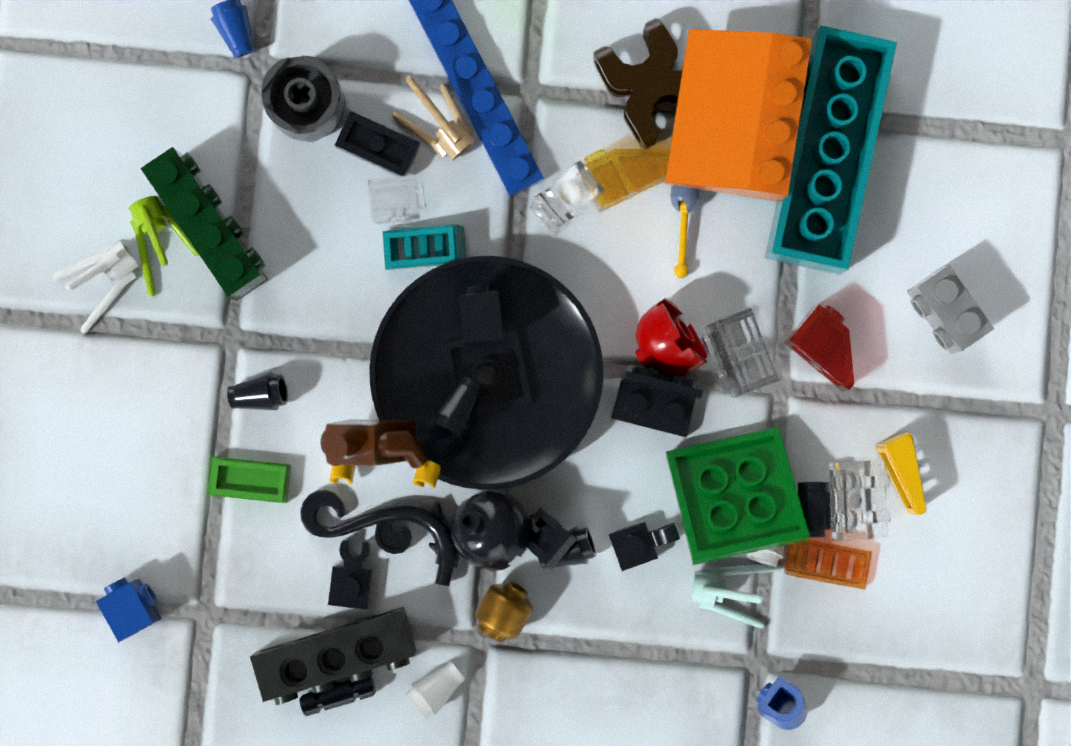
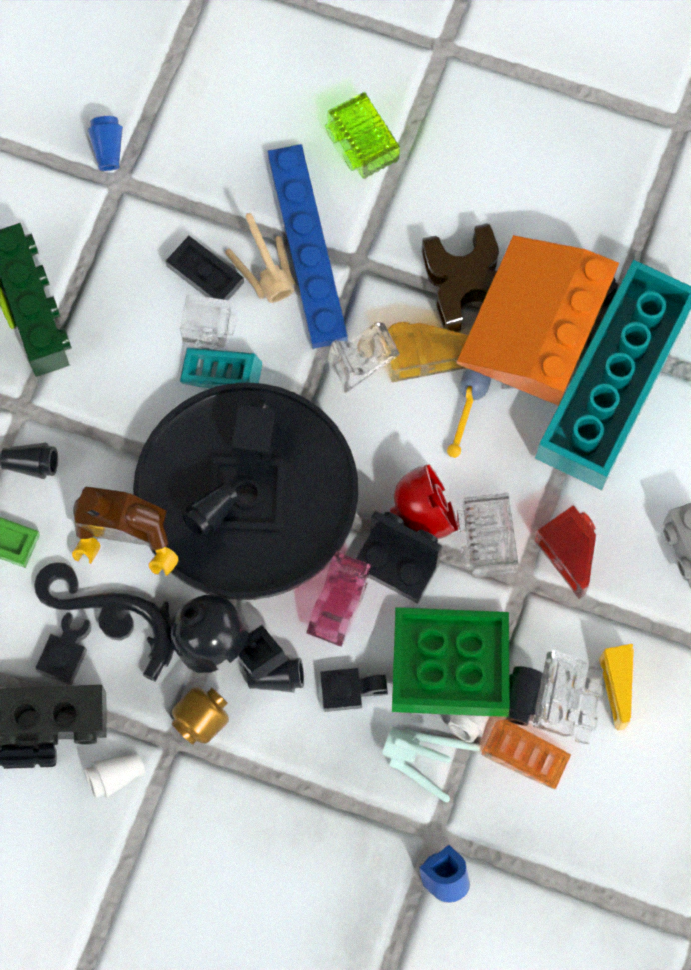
camera: 20 degrees right, 15 degrees down
(306, 77) = (149, 213): dark grey brick -> none
(609, 461) = (339, 599): none -> clear pink brick

